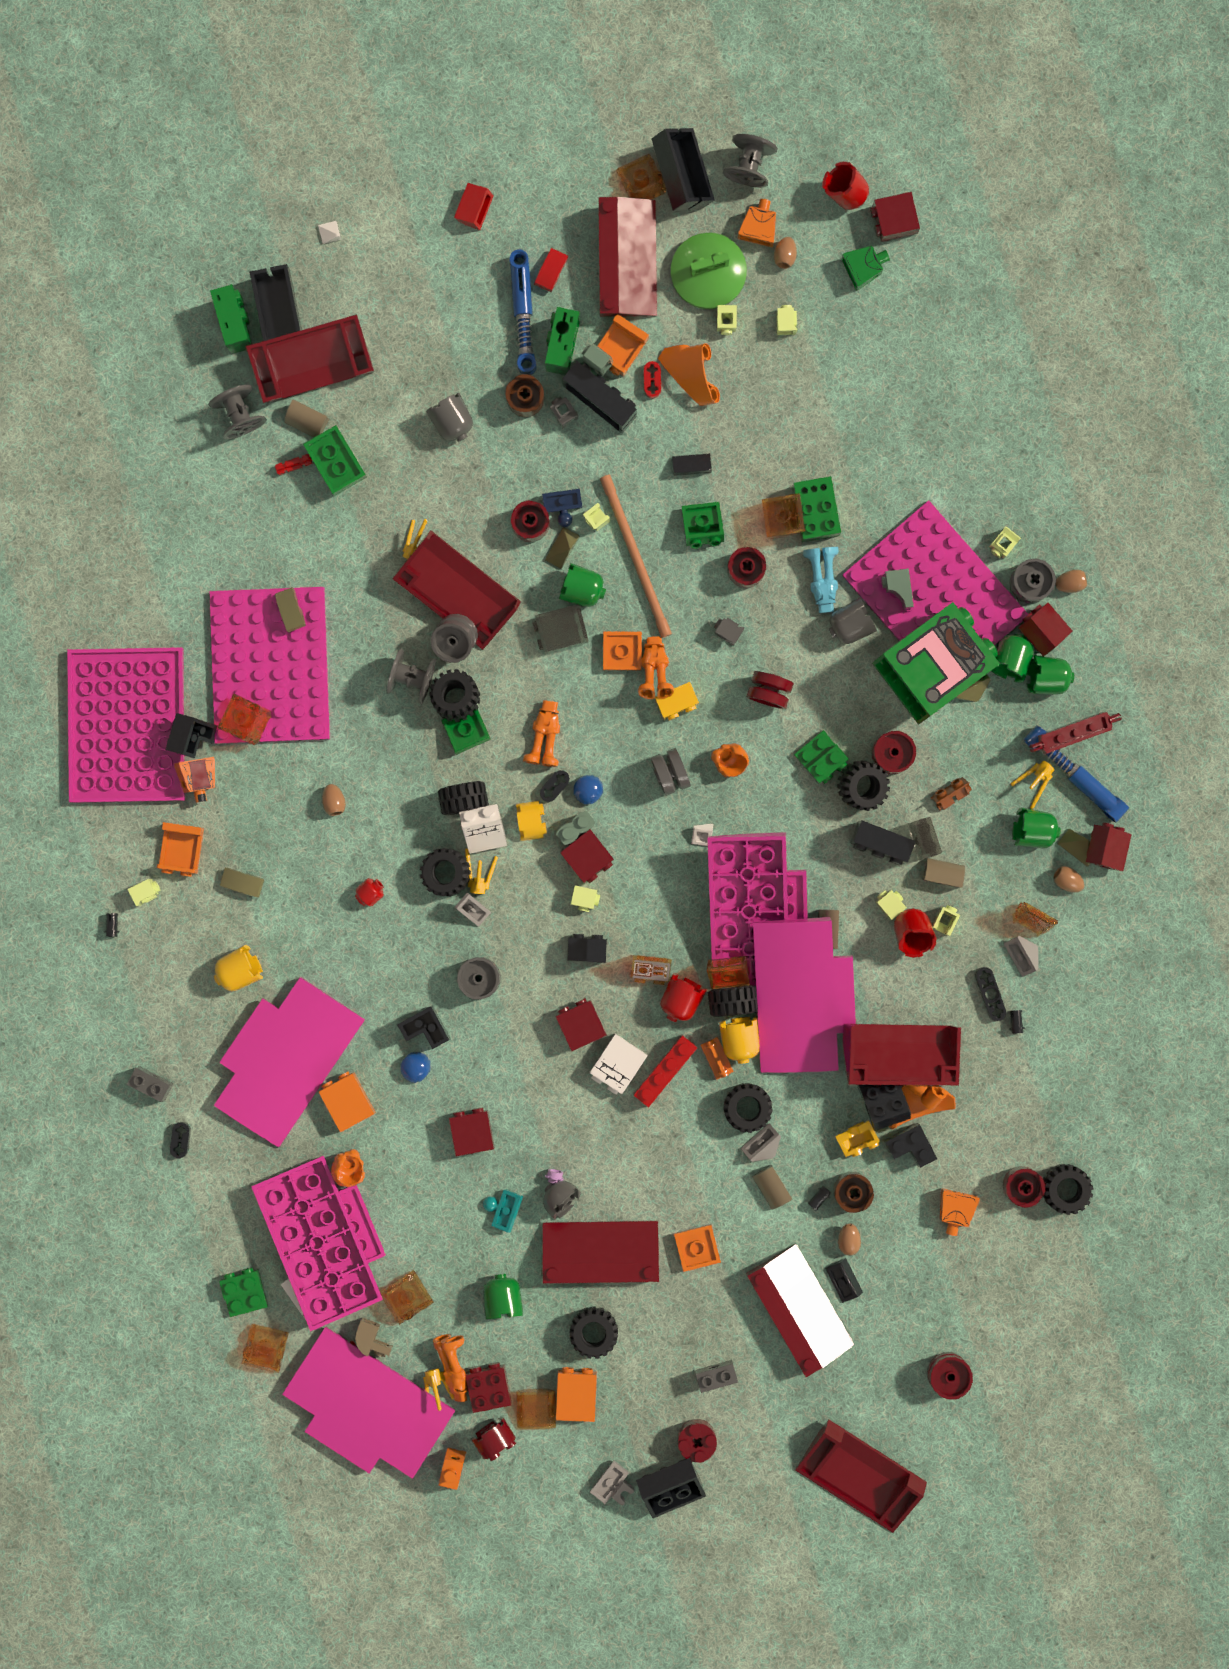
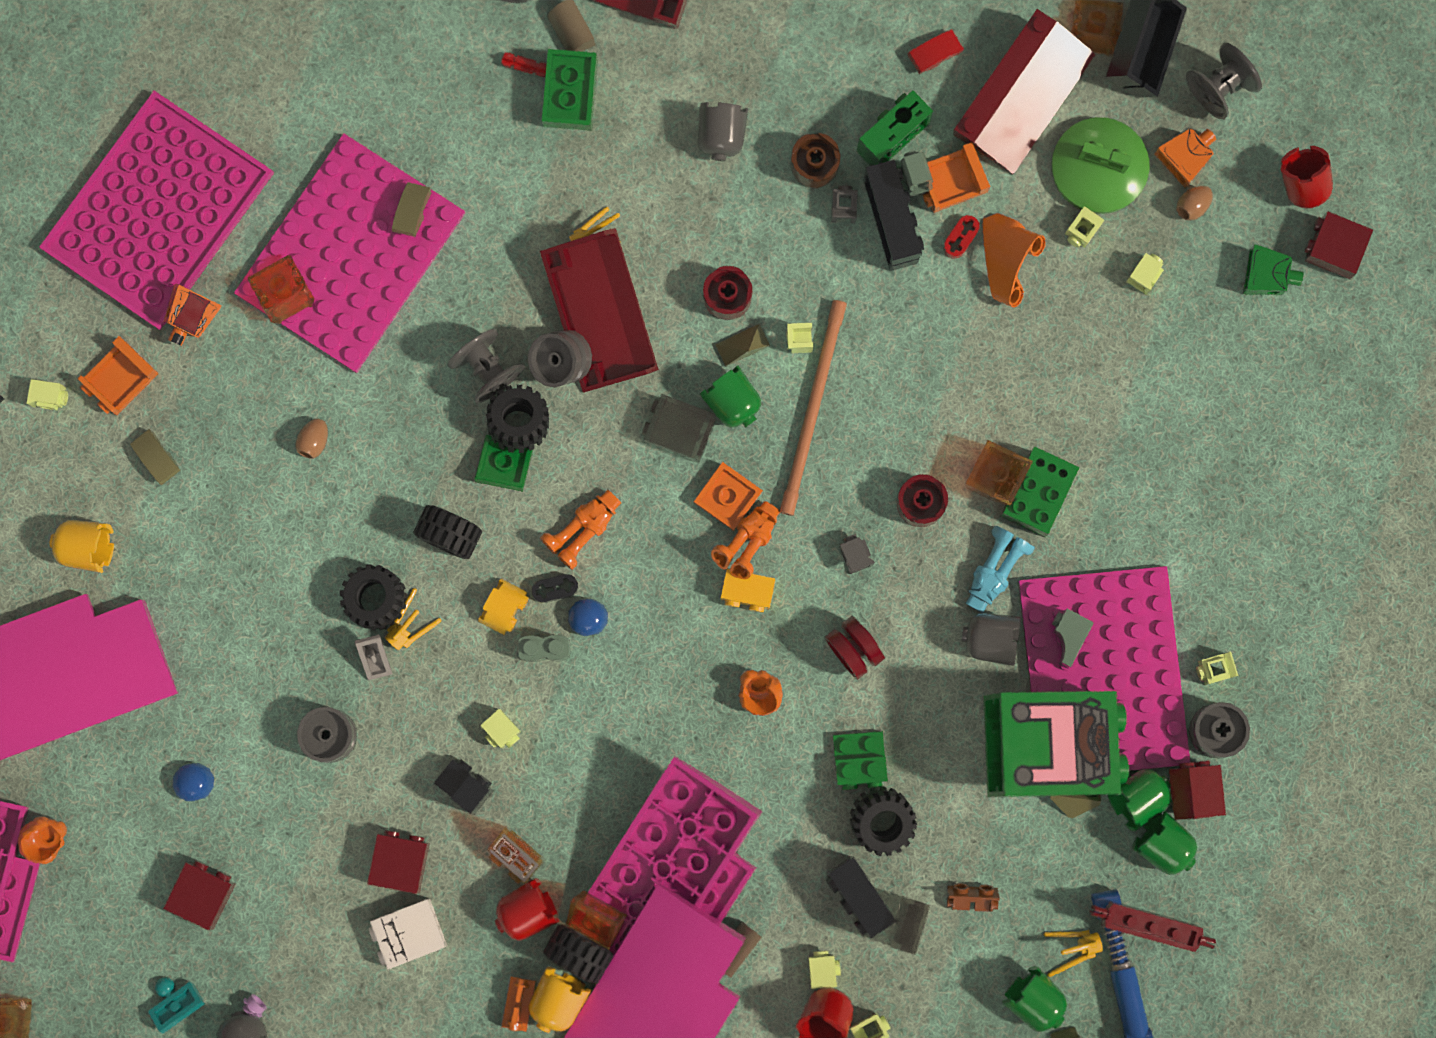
camera: 30 degrees right, 5 degrees down
(187, 734) = (209, 261): black brick -> none
(346, 1101) = (93, 766): orange brick -> none
(369, 892) = (279, 562): red head -> none
(427, 1023) = (239, 747): black brick -> none
(483, 828) = (445, 579): white brick -> none
(522, 310) = (876, 71): blue piece -> none
(562, 502) = (776, 297): dark blue plate -> none
(587, 857) = (534, 688): dark red brick -> none
(665, 1071) = (452, 977): red brick -> none
(669, 772) = (684, 659): dark grey wheel -> none
(691, 464) = (940, 353): black slope -> none
(701, 833) = (674, 747): white slope -> none
(703, 524) = (907, 423): green plate -> none
(894, 740) = (936, 823): dark red wheel -> none
(944, 873) = (905, 978): dark tan brick -> none
(1071, 581) = (1261, 761): medium nougat animal -> none

